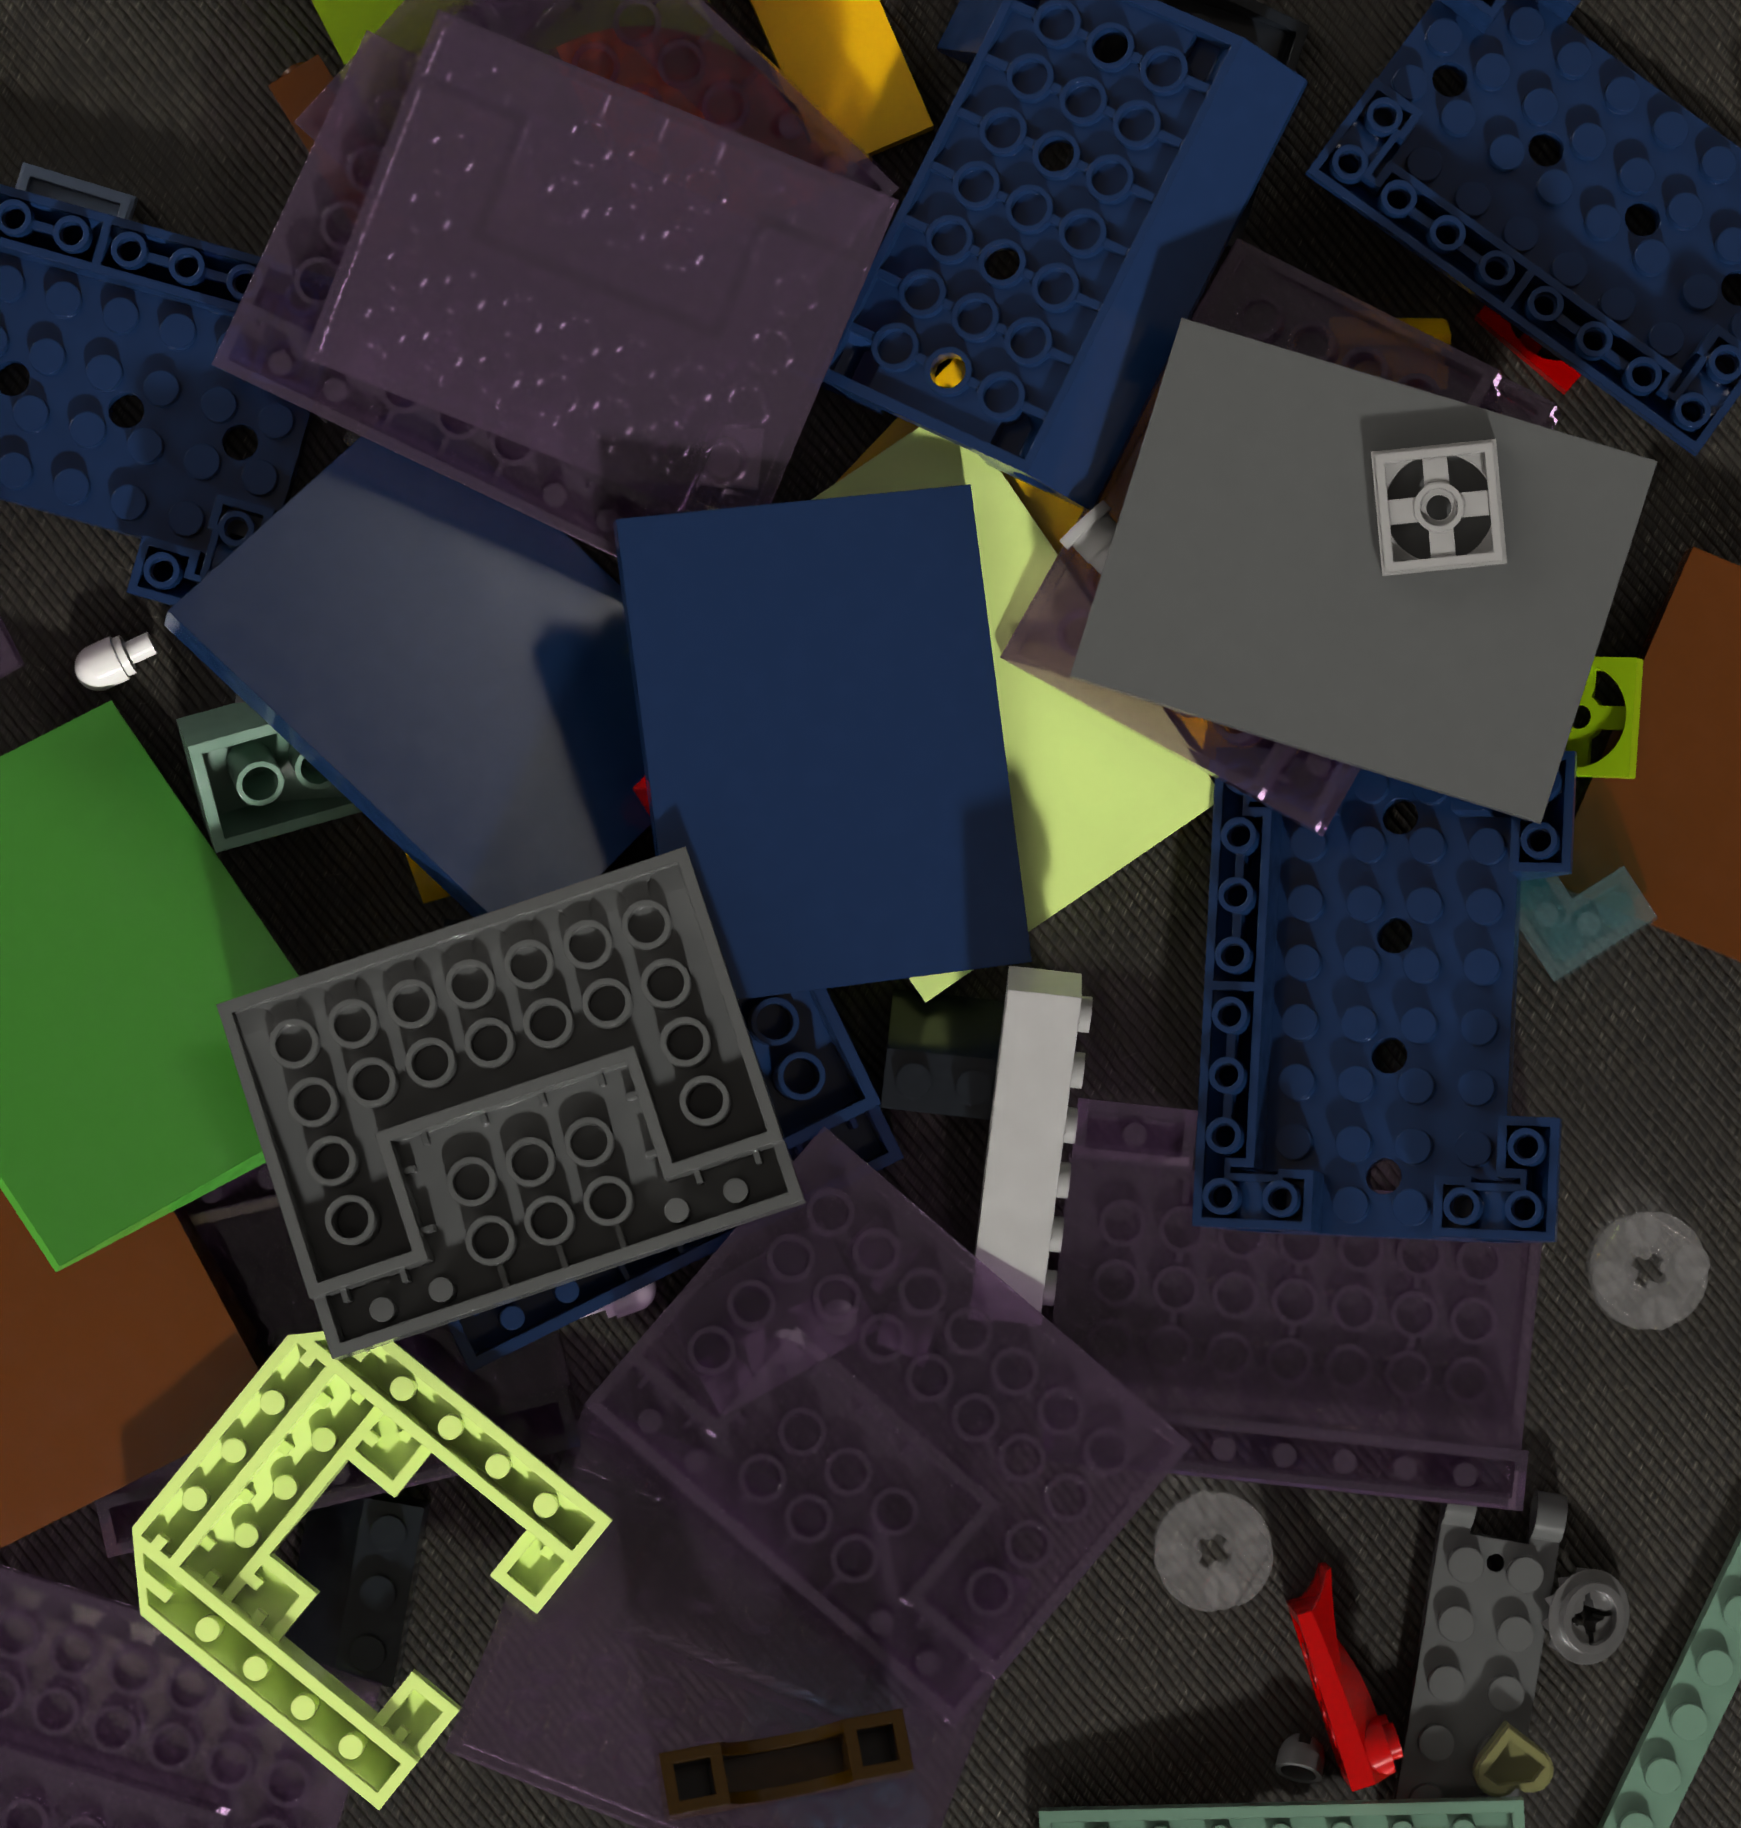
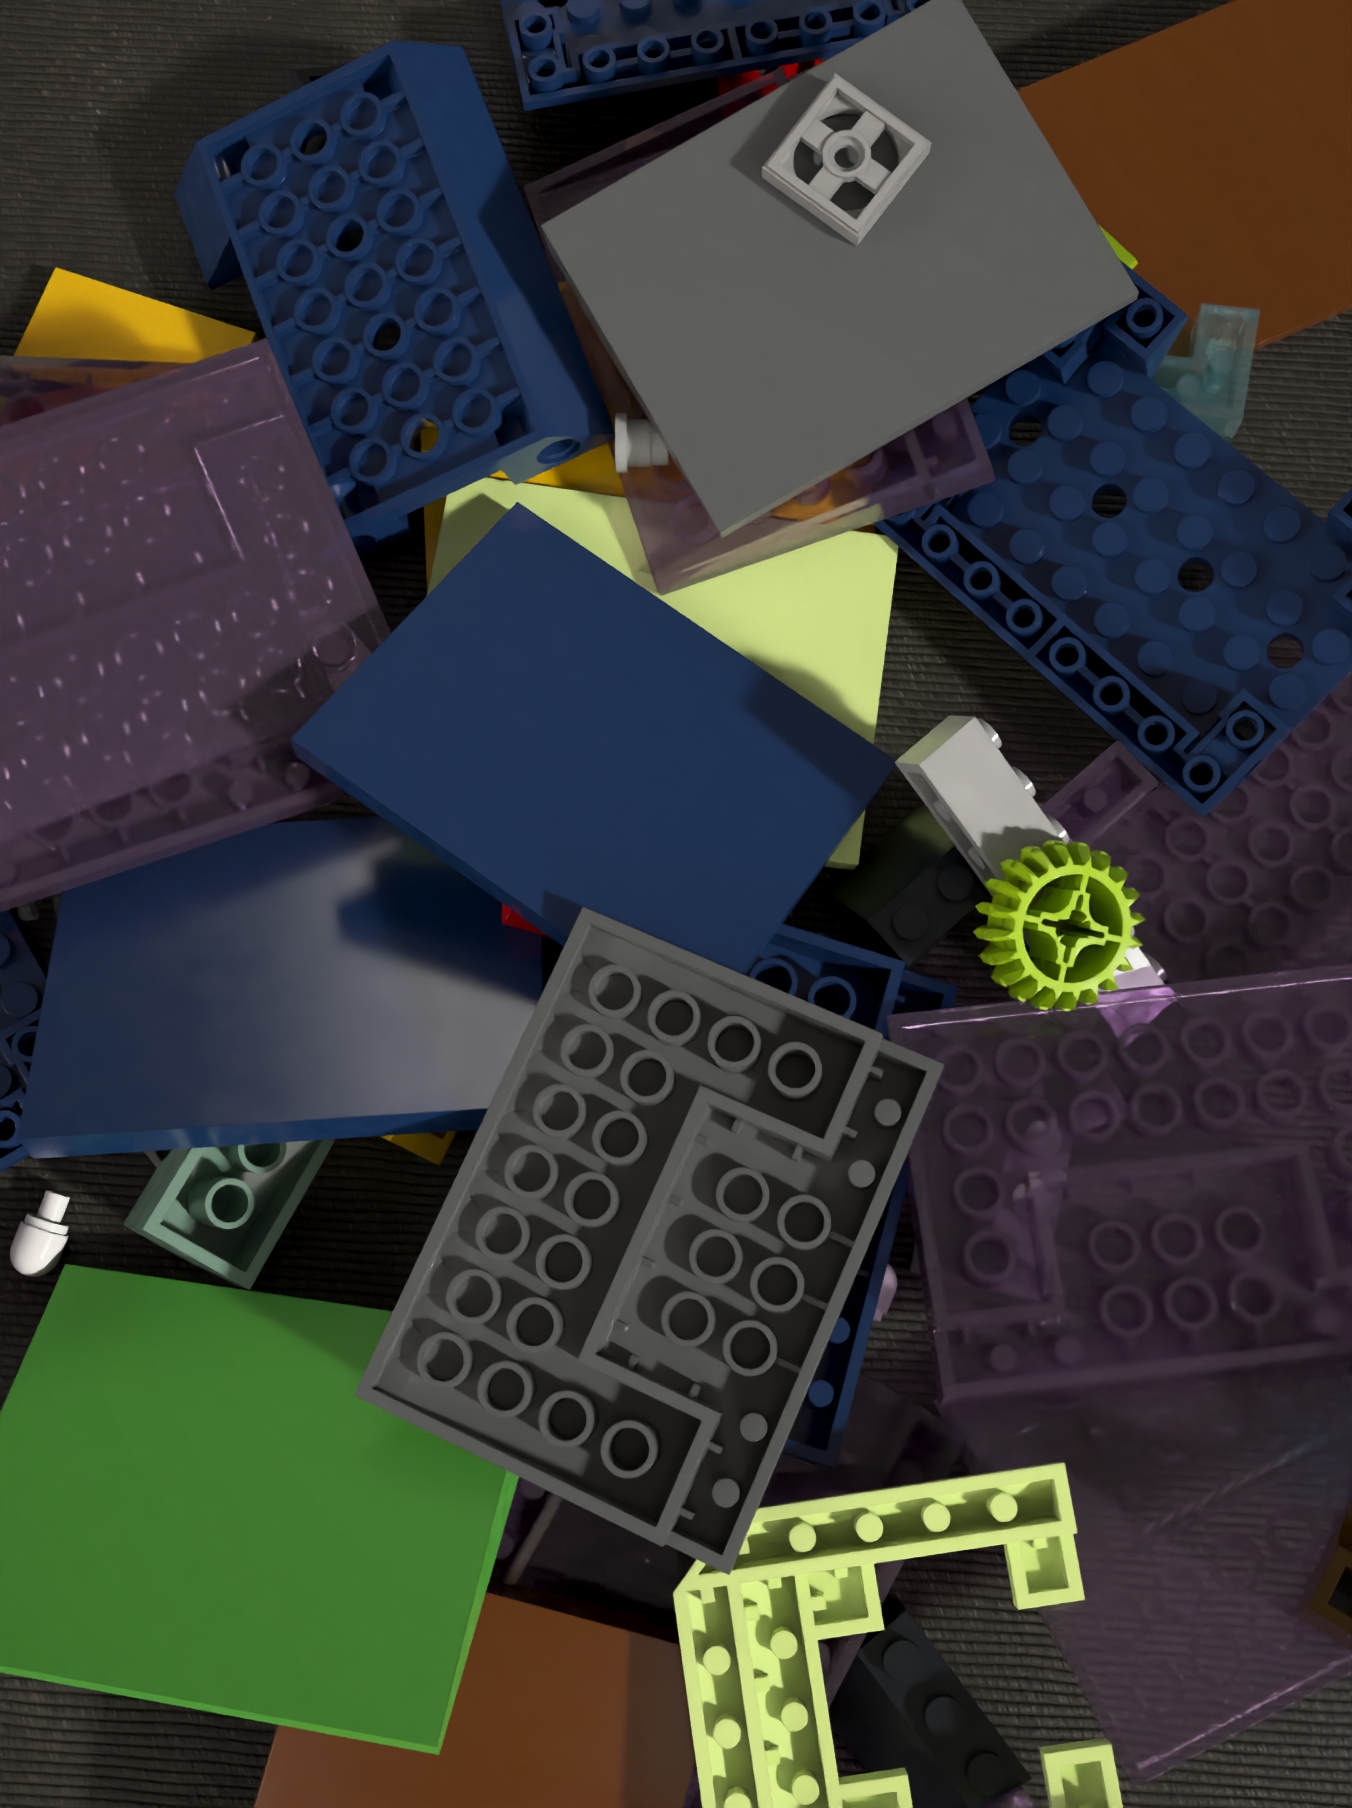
camera: 45 degrees left, 10 degrees down
(957, 1220) = (1054, 973): none -> lime gear

